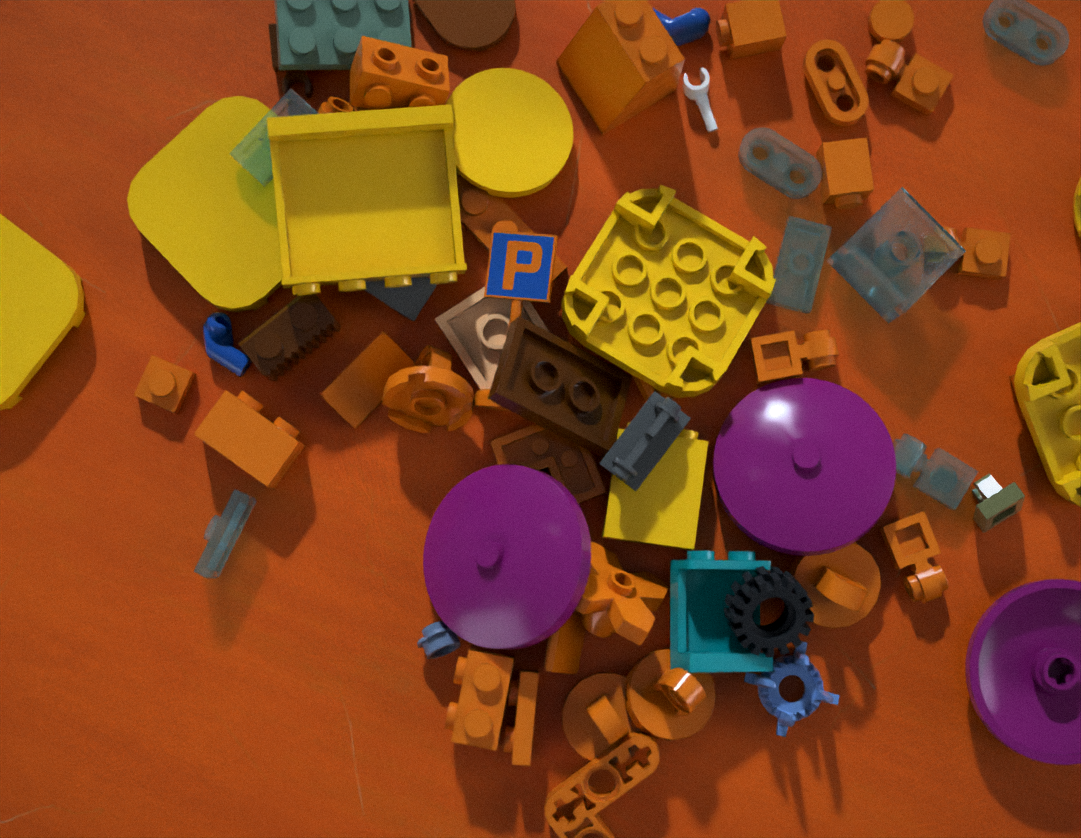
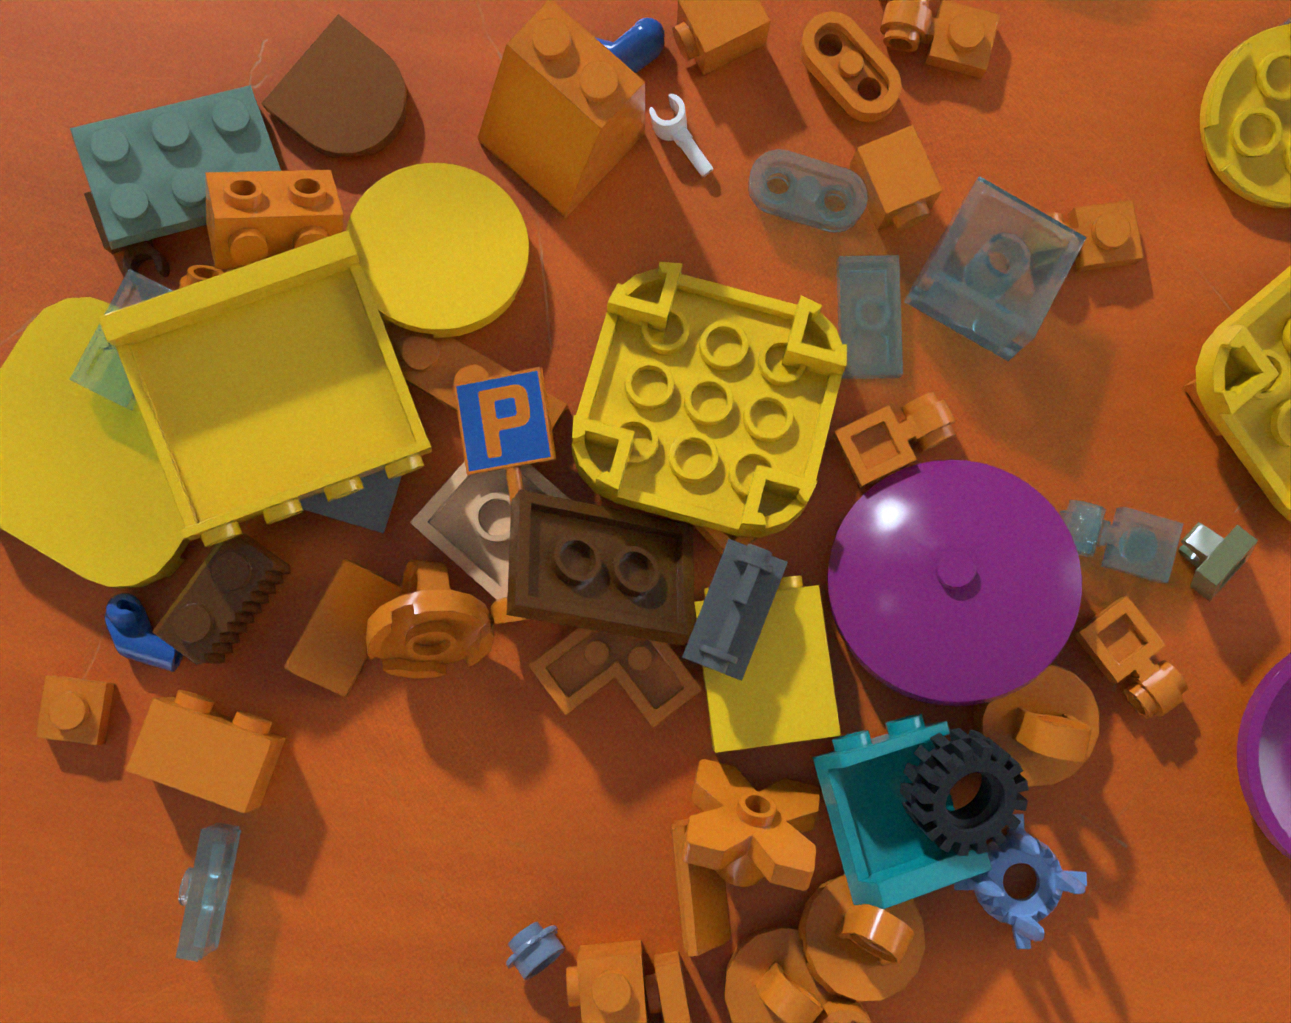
camera: 15 degrees left, 0 degrees up
(507, 557) = (594, 819): magenta dish -> none

